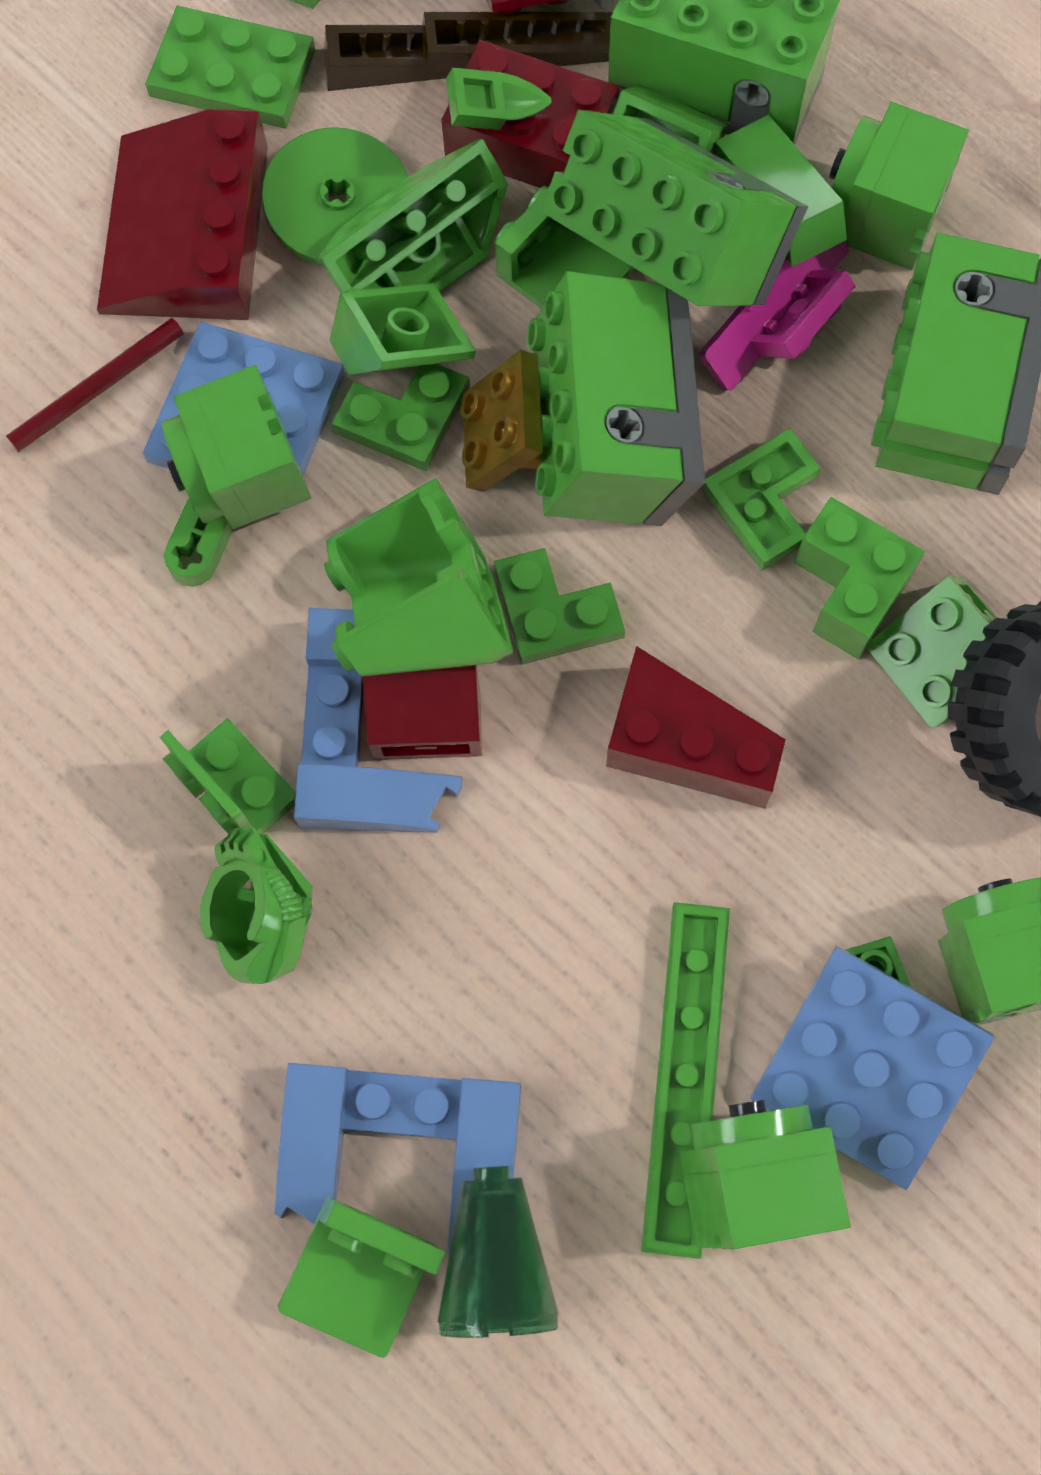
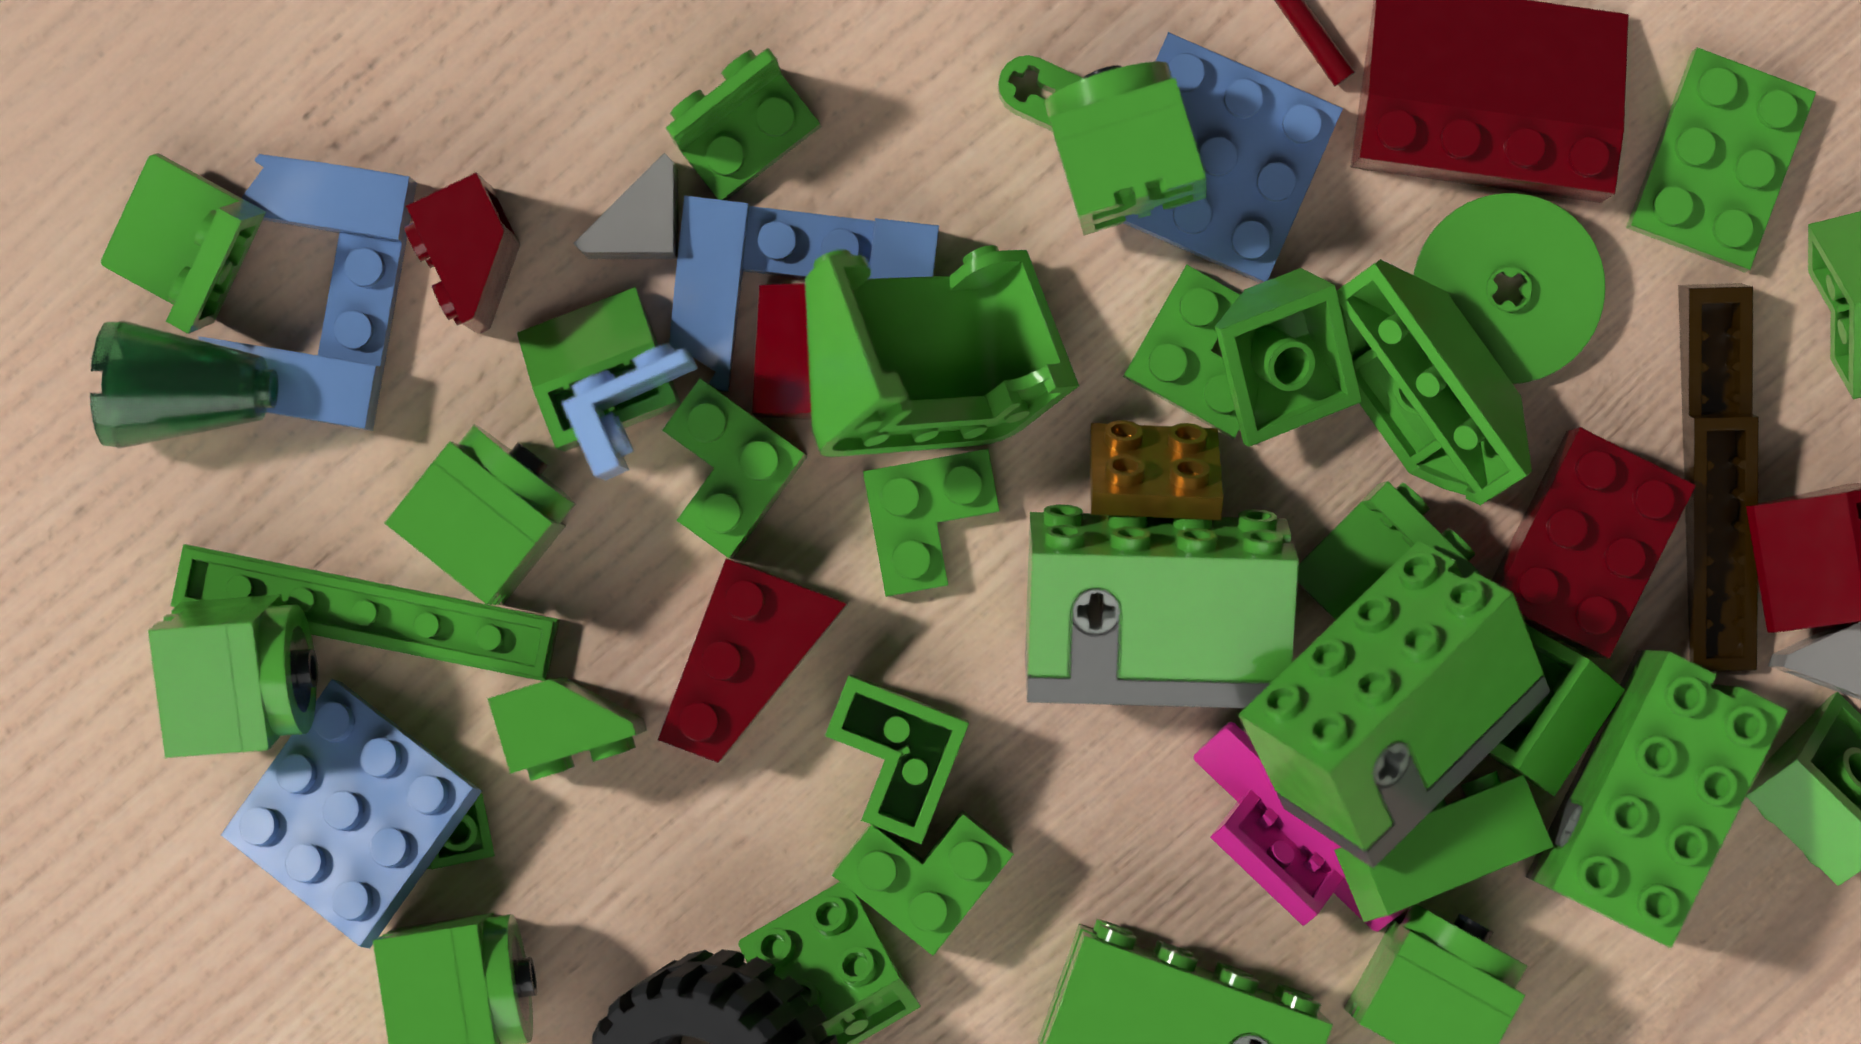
camera: 95 degrees right, 15 degrees up
(257, 928) = (581, 148): bright green helmet -> none
(322, 856) = (640, 220): none -> light grey slope
(350, 997) = (470, 246): none -> dark red slope
(451, 880) = (587, 343): none -> bright green slope
(491, 98) = (1583, 493): bright green plate -> none
(510, 844) = (604, 435): none -> light blue bracket
(527, 748) = (748, 465): none -> bright green brick
(589, 961) = (483, 514): none -> bright green piece
(751, 495) = (1043, 762): bright green plate -> none
(754, 588) = (916, 747): none -> bright green brick
(771, 882) = (556, 719): none -> bright green slope

